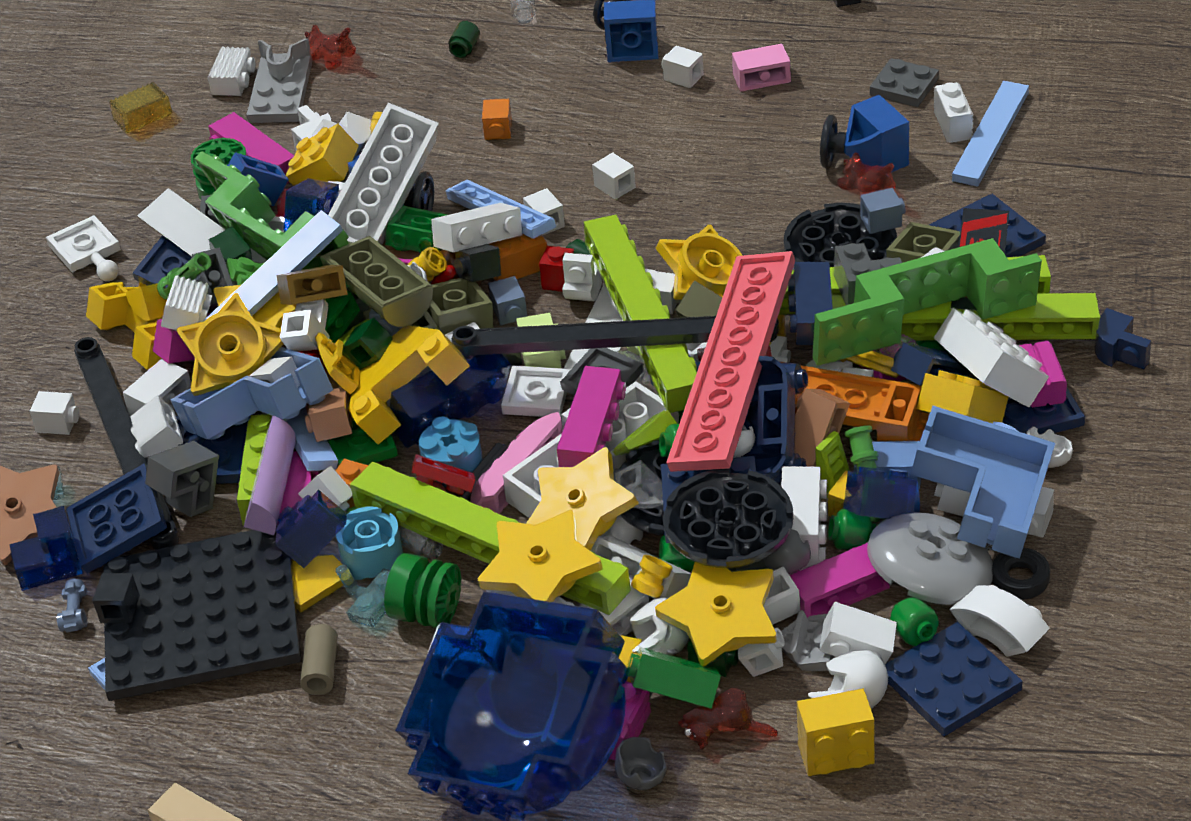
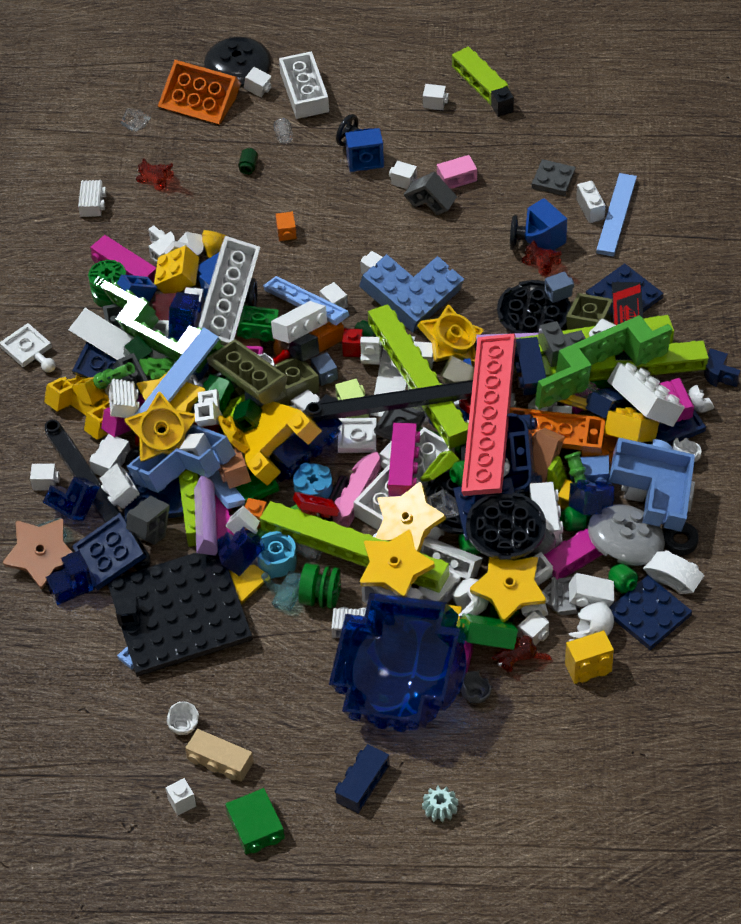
camera: 10 degrees left, 10 degrees up
(73, 617) = (97, 623): sand blue bar -> none
(85, 444) = (72, 502): none -> clear blue brick
(140, 107) = (35, 232): clear yellow brick -> none
(158, 766) = (182, 718): none -> white hair
(280, 83) = (127, 206): light grey plate -> none
(311, 284) = (207, 381): pearl gold brick -> none
(319, 659) = (262, 636): dark tan brick -> none
(431, 261) = (272, 349): yellow wheel -> none
(651, 577) = (462, 565): yellow wheel -> none
(659, 209) = (411, 296): none -> medium blue piece
(718, 85) = (432, 191): none -> dark grey brick
(758, 681) = (534, 626): none -> white brick
(1076, 382) = (700, 404): none -> white hair

